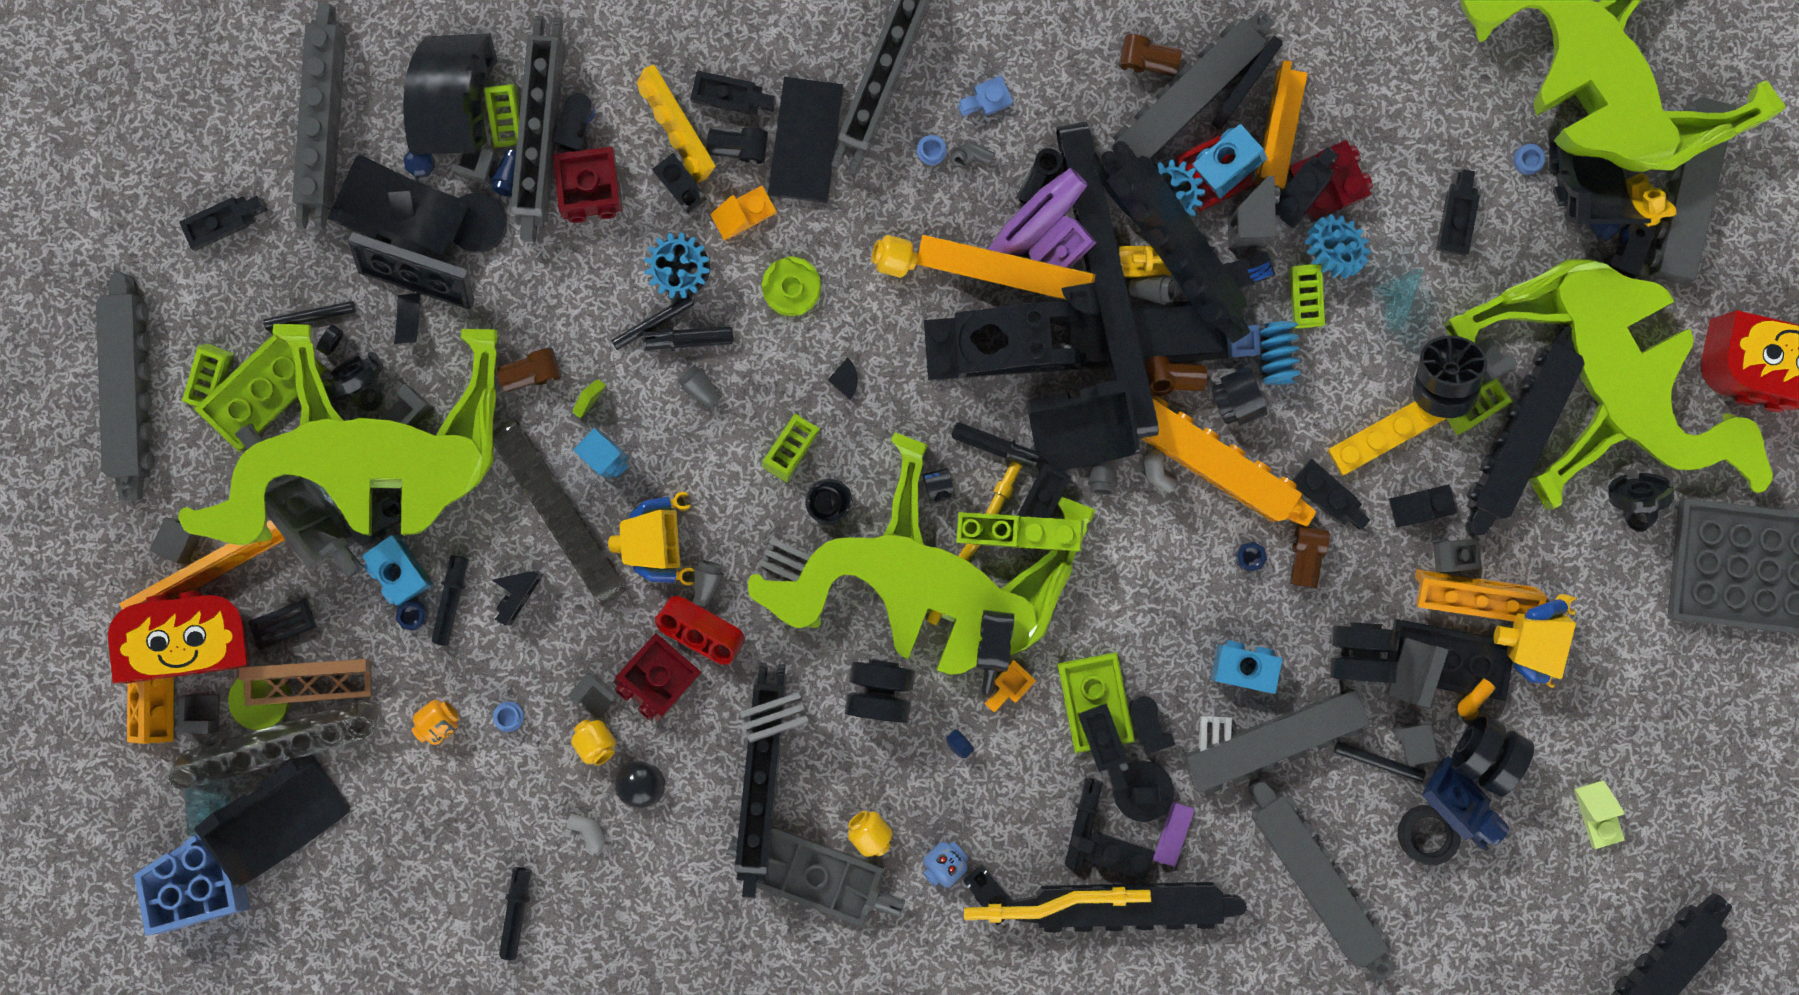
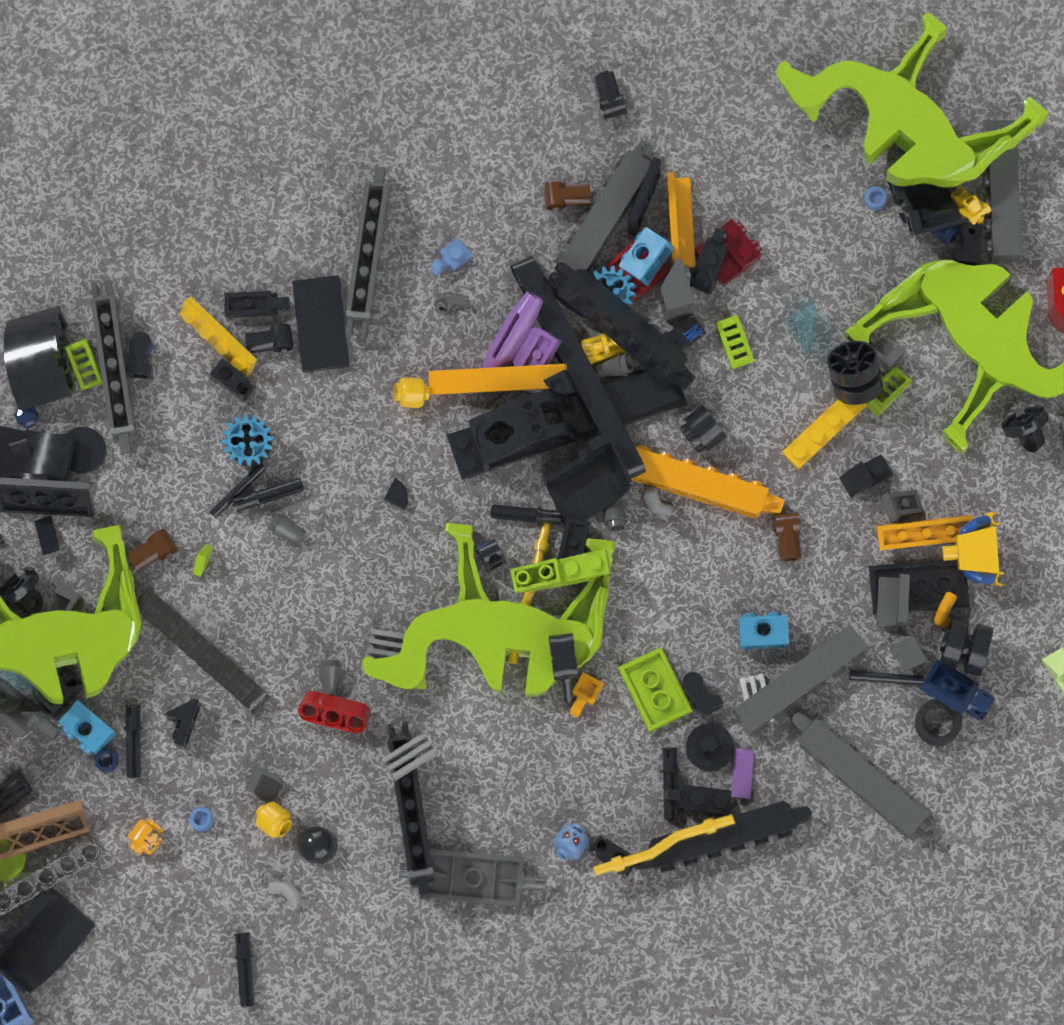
camera: 15 degrees left, 10 degrees down
(477, 166) = (72, 407): dark grey panel -> none
(503, 177) = (97, 408): dark blue cone -> none
(587, 184) = (162, 398): dark red plate -> none
(602, 454) = (225, 597): dark azure brick -> none
(651, 540) = (279, 653): yellow torso -> none
(655, 678) = (309, 758): dark red plate -> none
(742, 213) = (286, 390): light orange slope -> none
(775, 468) = (365, 576): lime slope -> none
(783, 290) = (341, 442): lime tile -> none
(819, 501) = (401, 590): black hair -> none
(869, 833) = (506, 833): yellow head -> none
(880, 683) = (485, 714): black wheel -> none
(931, 150) = (419, 306): medium blue plate -> none
(959, 744) = (558, 747): dark blue tile -> none
(1038, 177) = (506, 305): black piece -> none
(1104, 744) = (669, 716): black hinge -> none
(1166, 377) = (642, 429): reddish brown piece -> none
(1247, 345) = (697, 390): medium blue plate -> none
(1250, 556) = (744, 547): dark blue tile -> none
(1279, 353) = (723, 389): dark azure piece -> none
(1330, 495) = (793, 486): black hinge -> none
(1335, 234) = (759, 304): dark azure gear -> none
(1364, 646) = (848, 590): black wheel -> none
(1459, 215) = (833, 253): black hinge -> none
(1525, 433) = (928, 401): black hinge -> none

